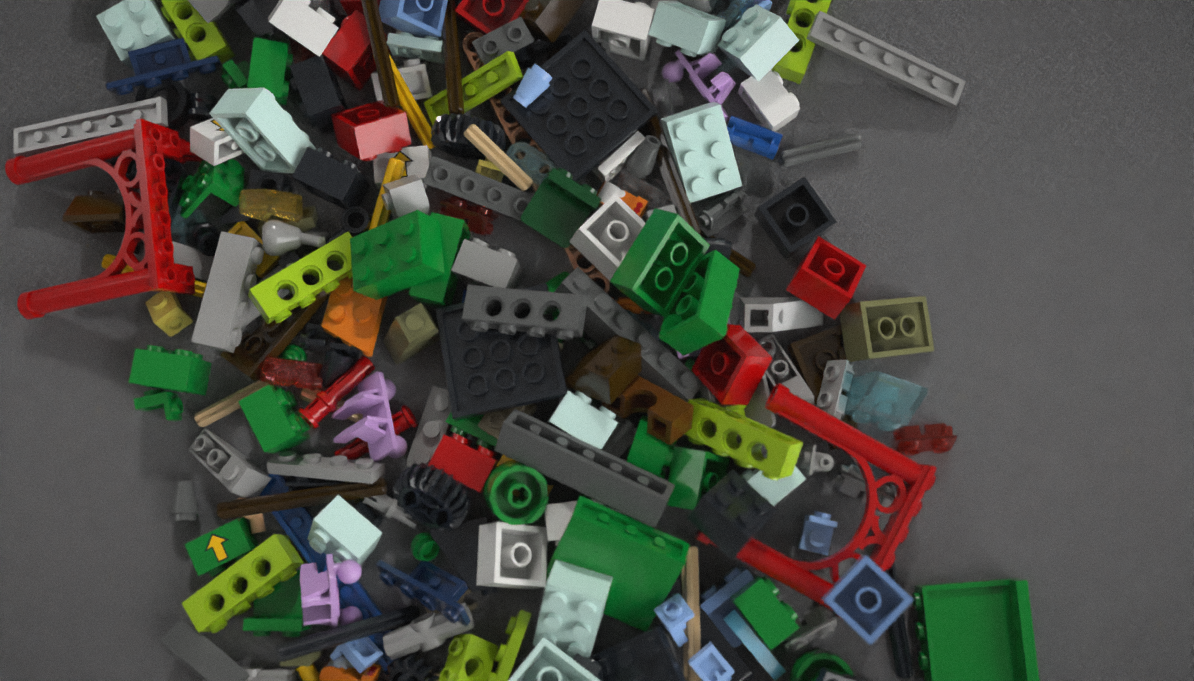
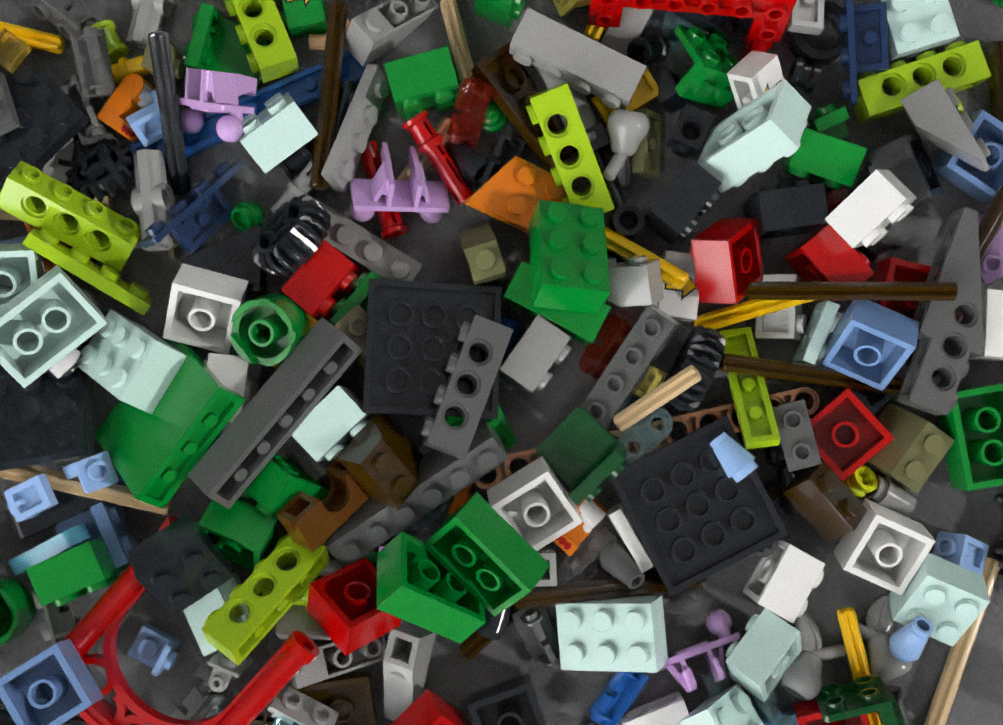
camera: 90 degrees right, 5 degrees up
(266, 202) = (669, 124): clear yellow slope -> none

